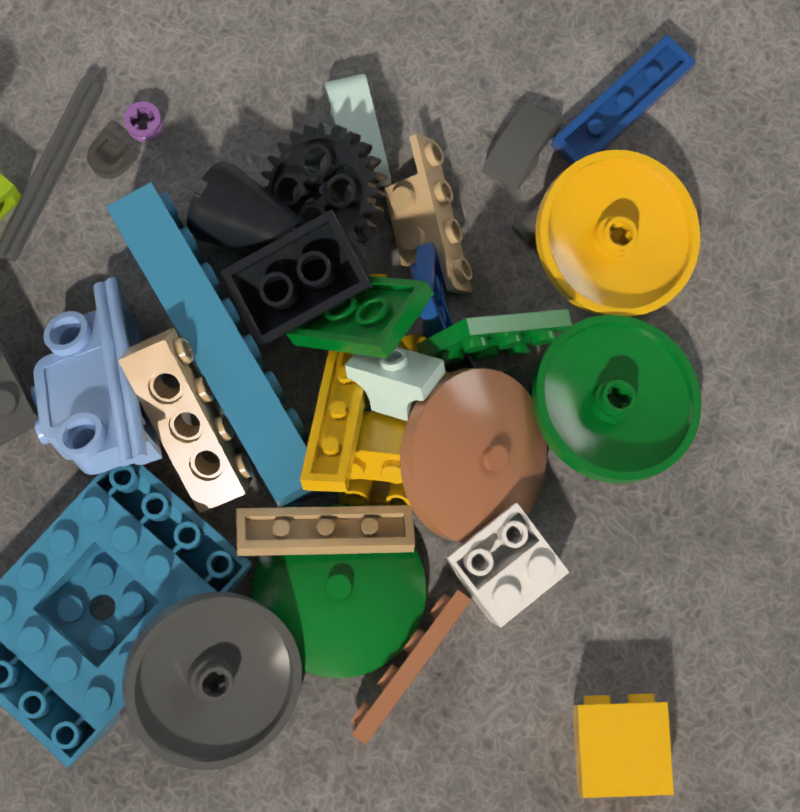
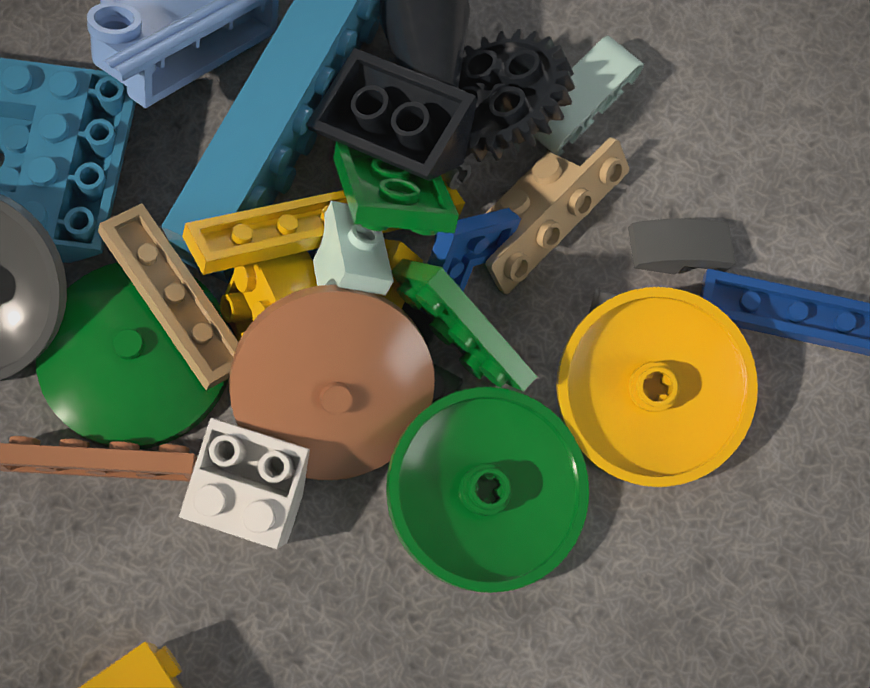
camera: 55 degrees right, 5 degrees down
(205, 481) = (194, 102): tan brick -> none

